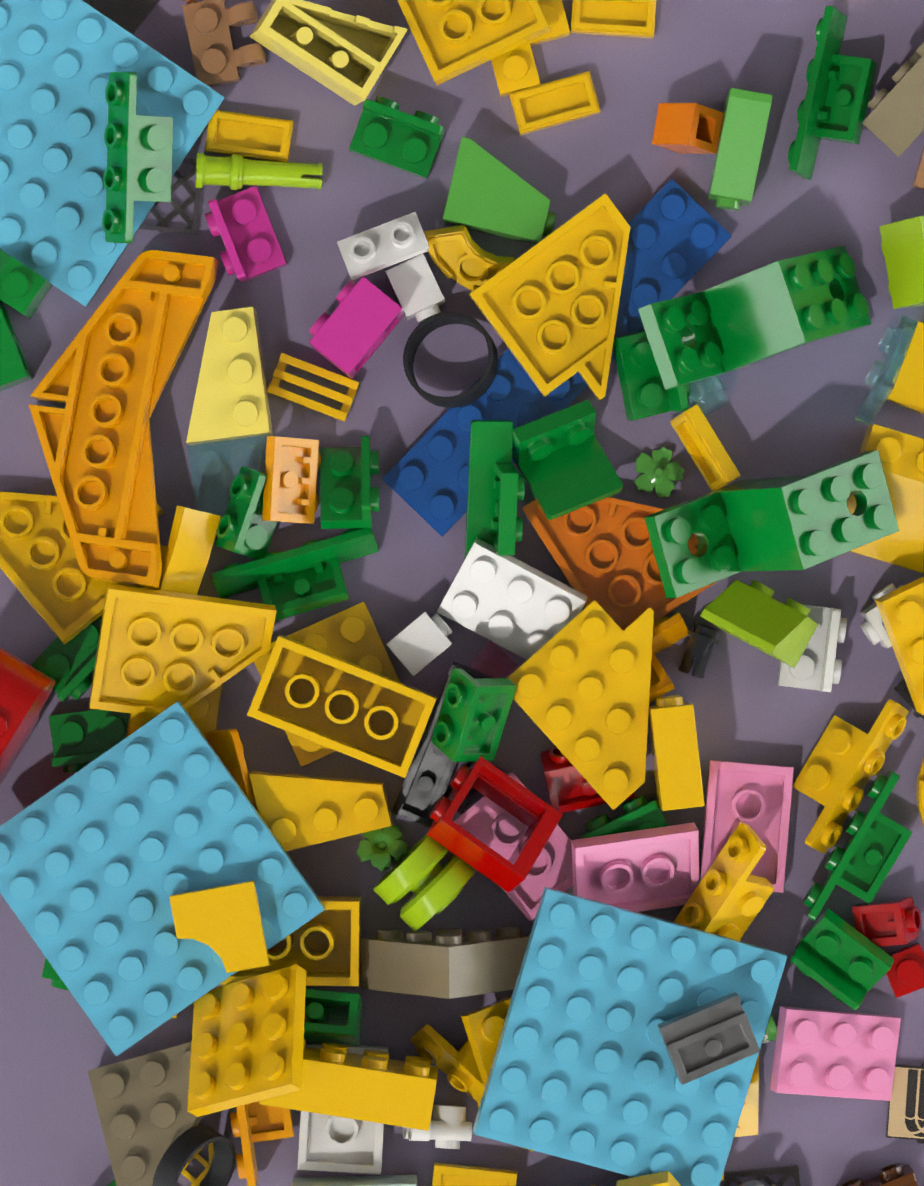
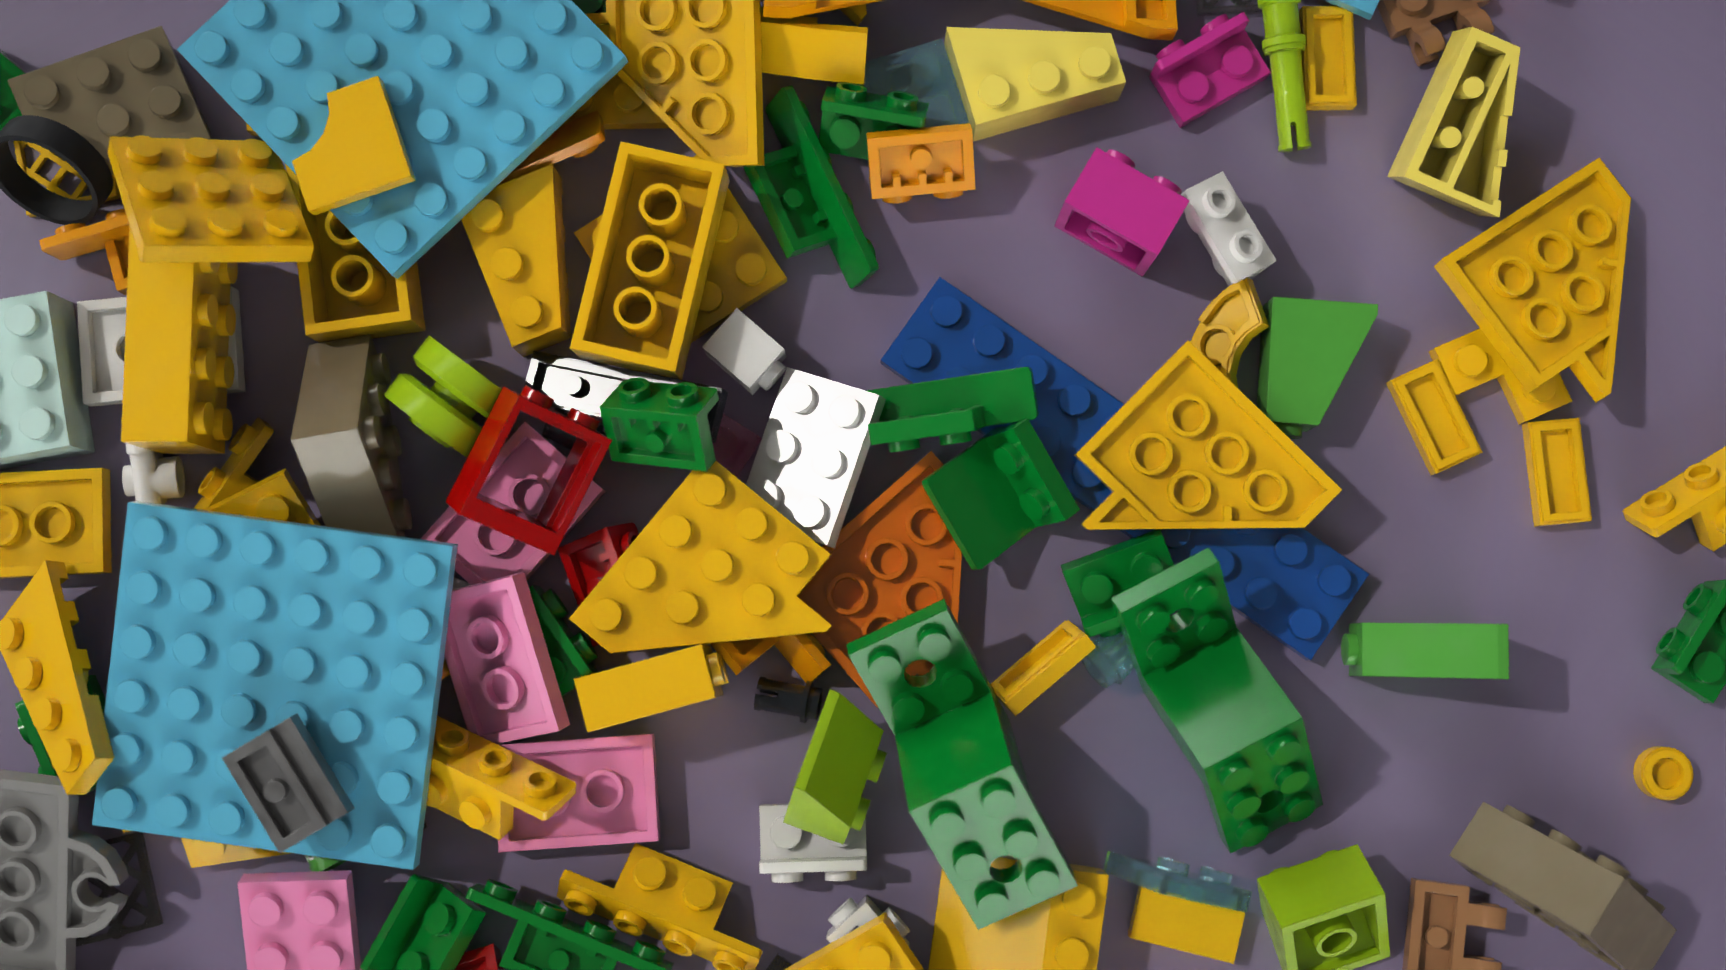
camera: 80 degrees right, 5 degrees down
(280, 374) = (1046, 138): yellow tile -> none
(332, 1017) = (267, 307): green brick -> none
(346, 486) = (924, 234): green bracket -> none
(382, 846) = (490, 346): bright green plant -> none
(397, 137) = (1359, 233): green bracket -> none
(416, 288) = (1179, 281): white brick -> none
(427, 327) = (1125, 297): black tyre -> none
(658, 472) = (1001, 614): bright green plant -> none
(687, 128) = (1437, 582): orange brick -> none
(834, 96) = (1508, 761): green bracket -> none

